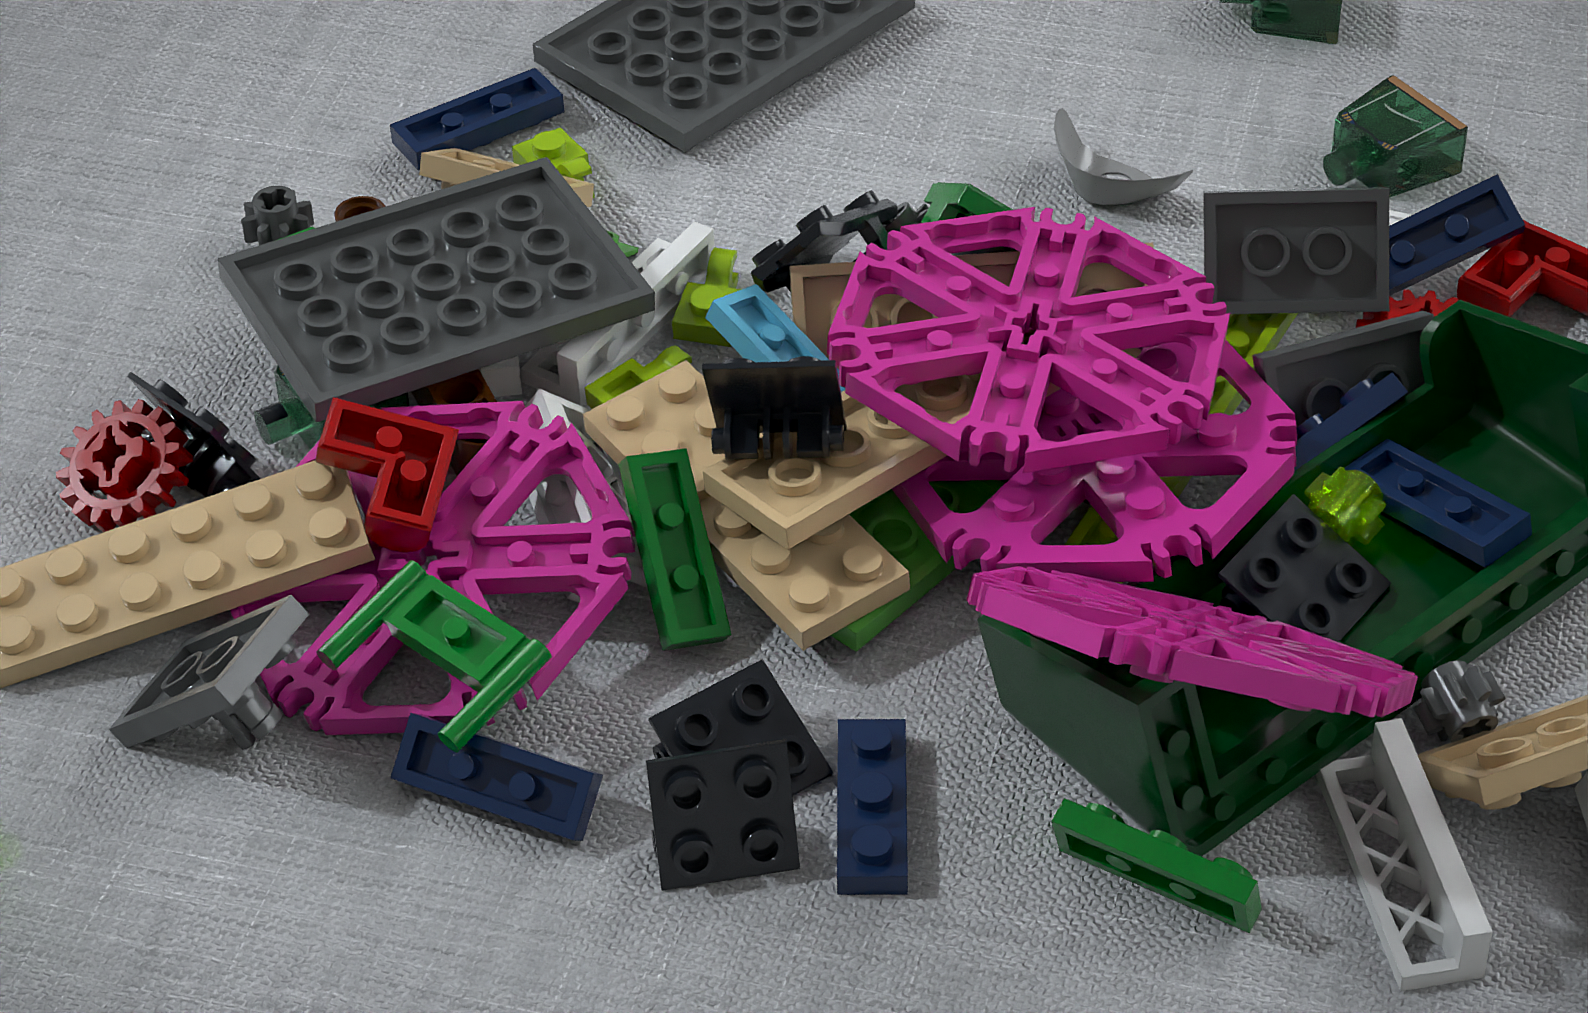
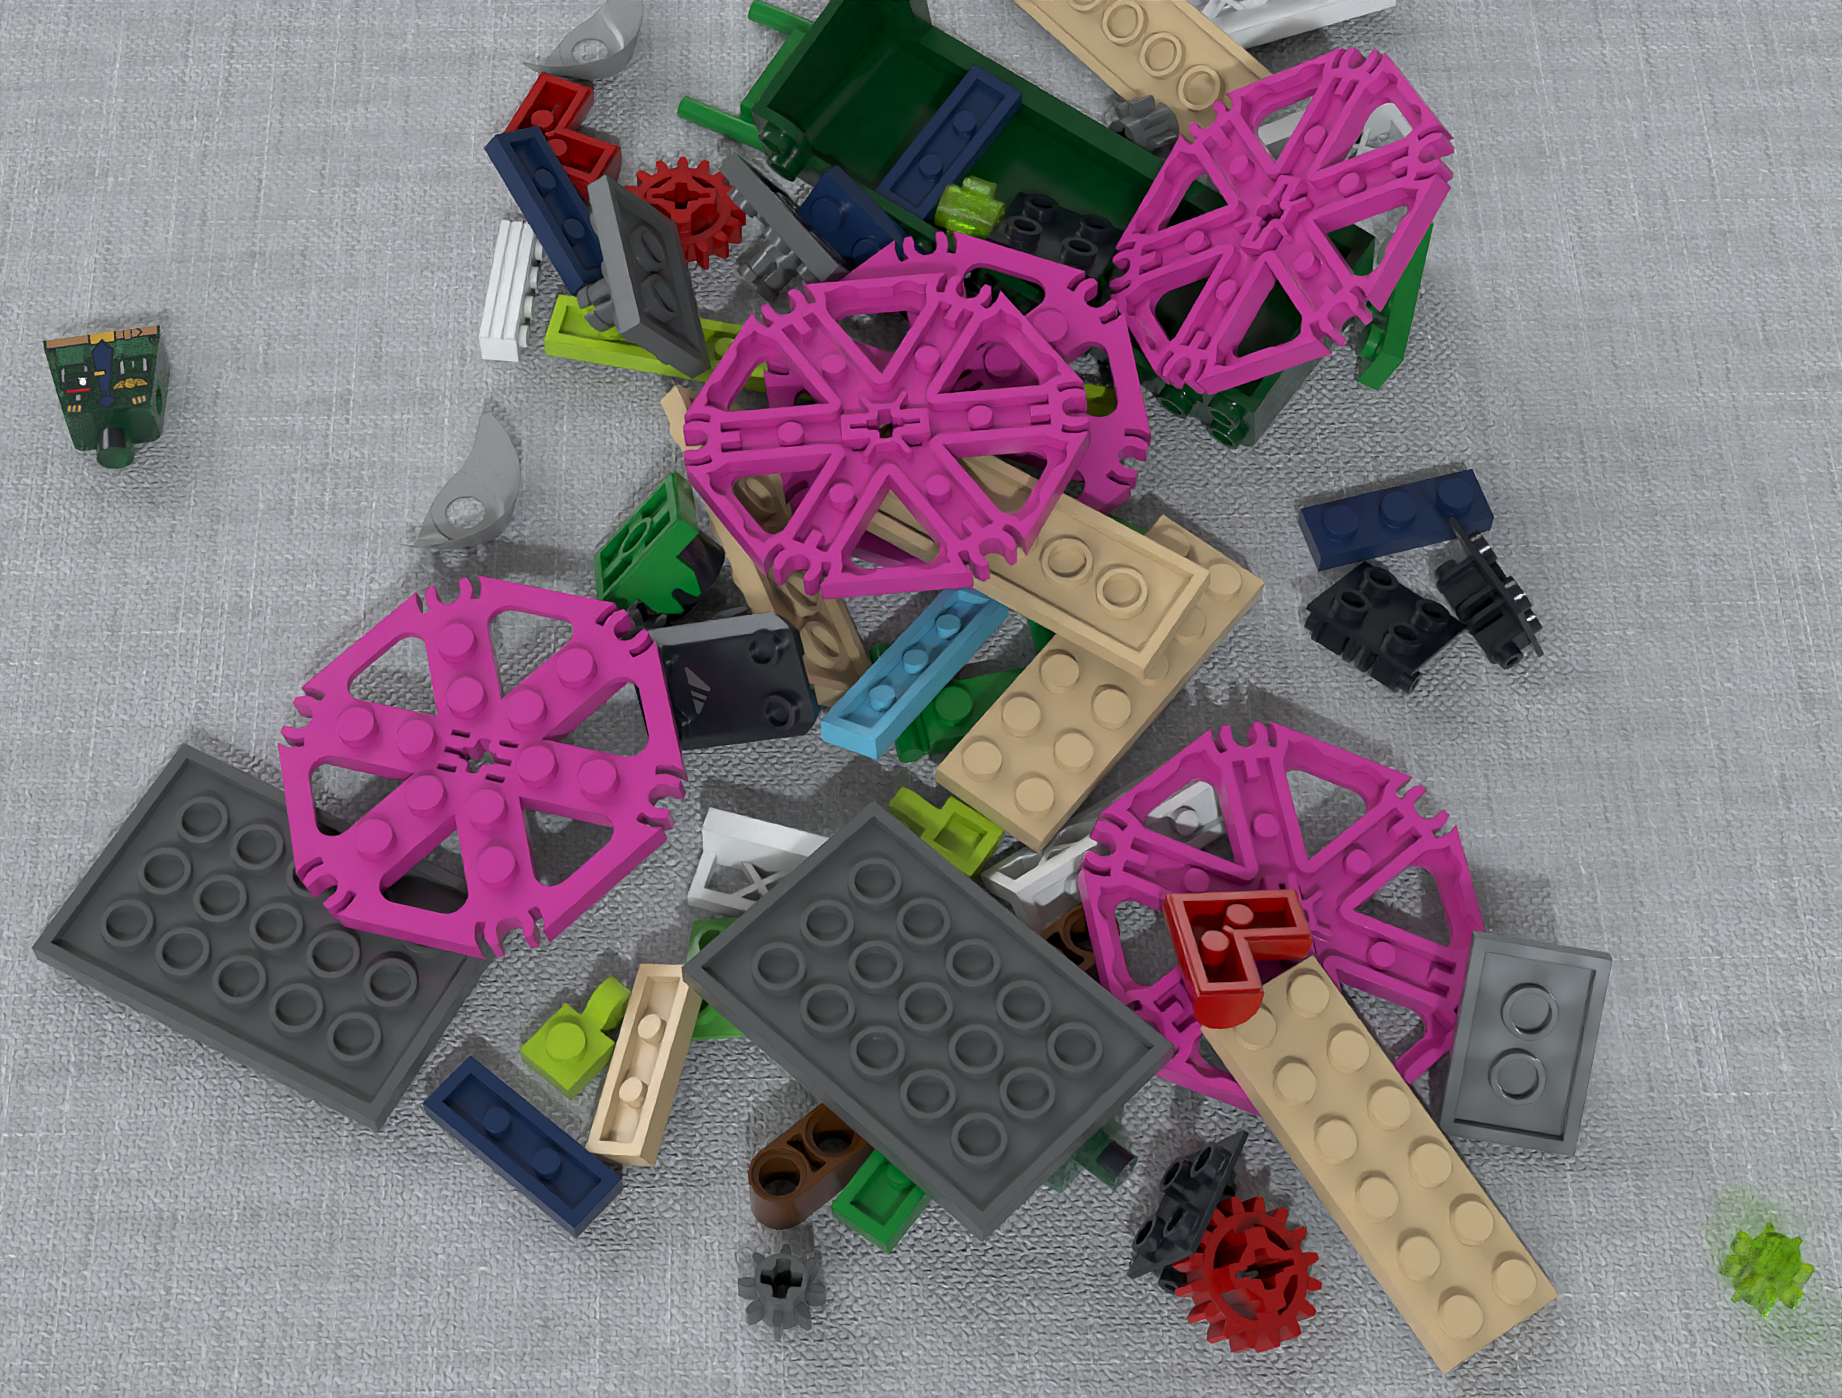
camera: 110 degrees left, 15 degrees up
(452, 635) = (1401, 838): green plate -> none
(498, 778) = (1502, 795): dark blue plate -> none
(674, 549) = (1195, 704): green plate -> none
(689, 319) = (785, 803): lime plate -> none
(773, 399) = (1091, 589): black hinge -> none
(826, 104) = (490, 805): none -> dark pink plate
(1395, 140) = (368, 274): clear green torso -> none

